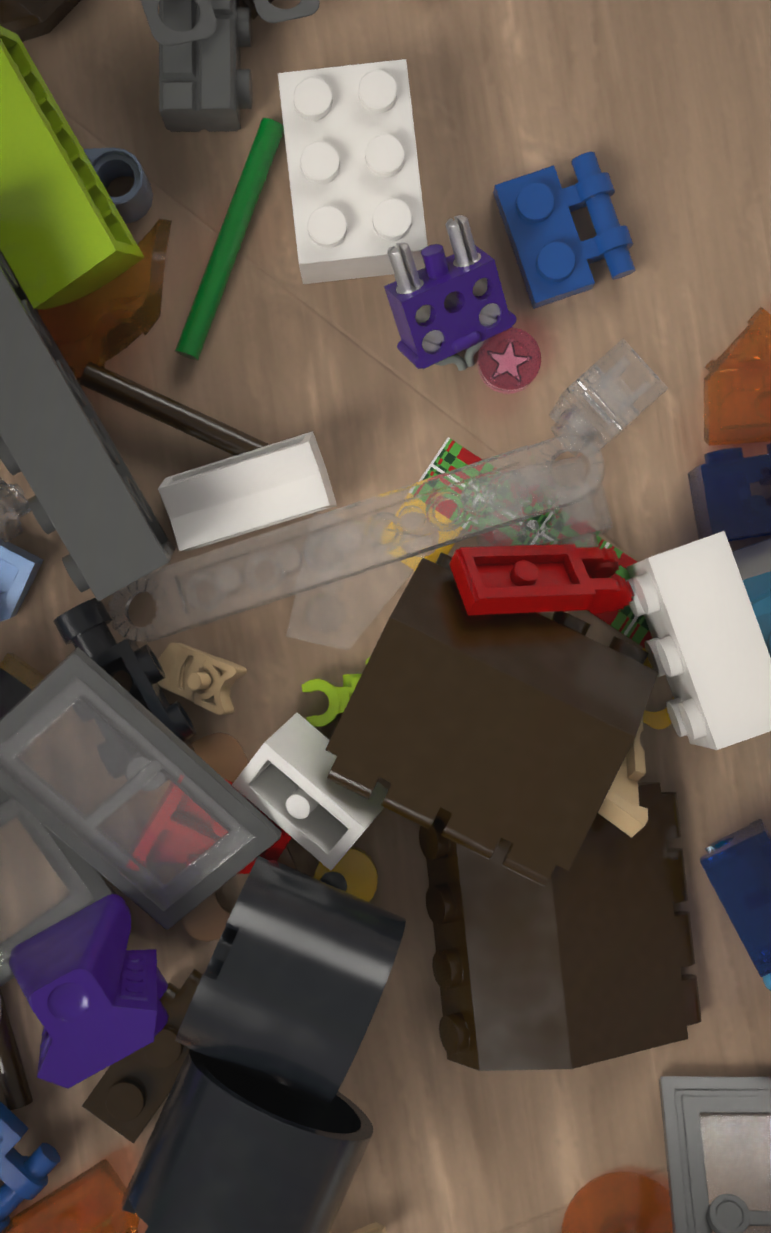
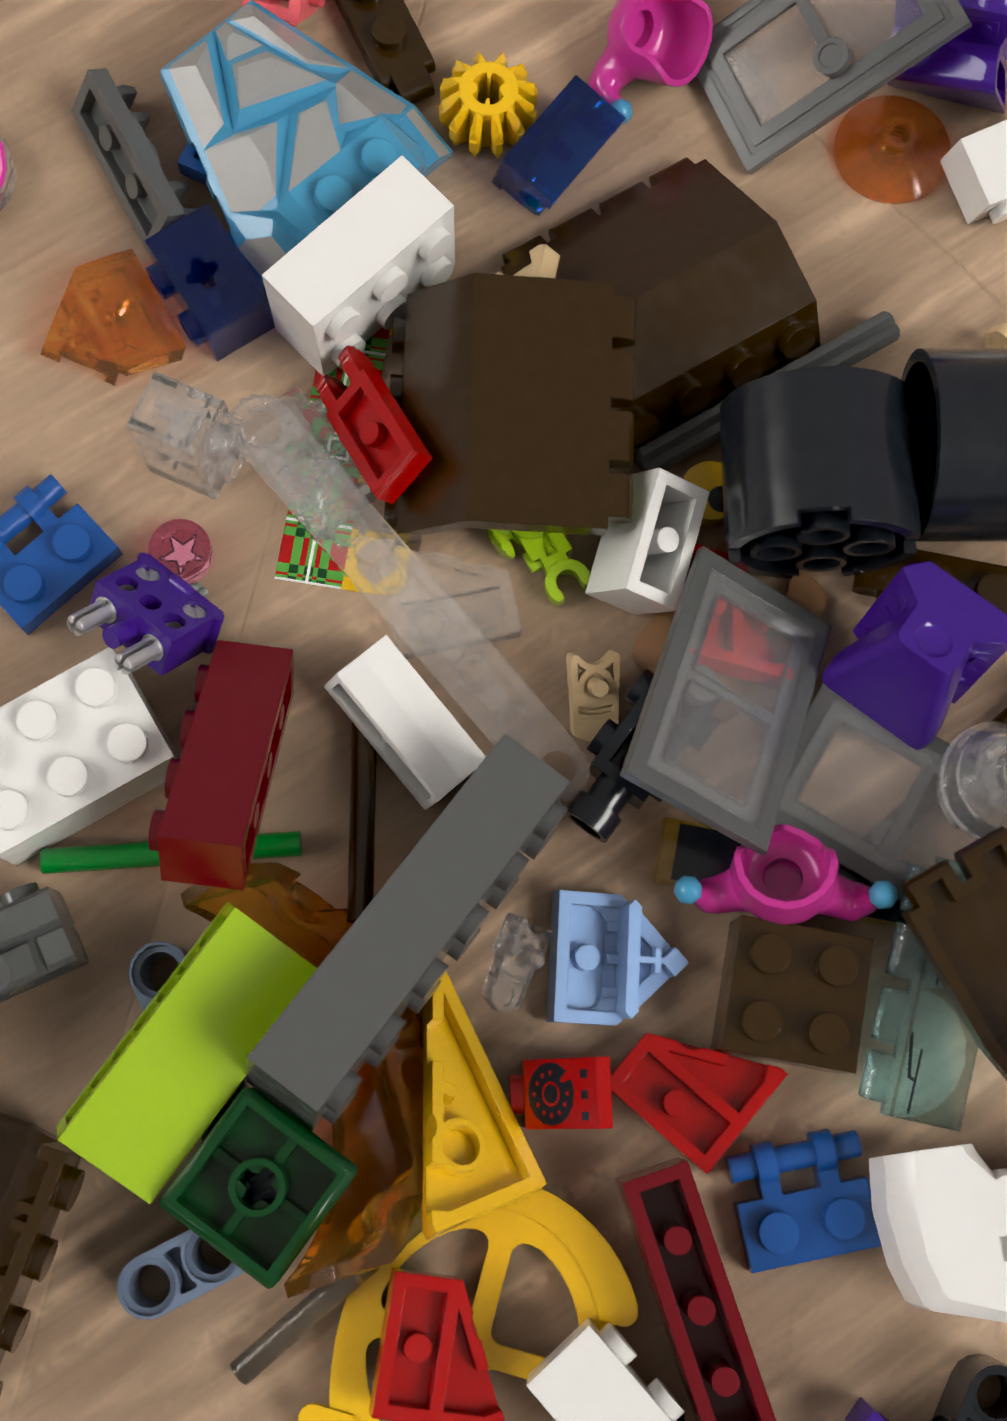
camera: 120 degrees left, 10 degrees down
(263, 303) = (224, 767): none -> dark red brick
(419, 985) = (705, 428): none -> dark grey axle

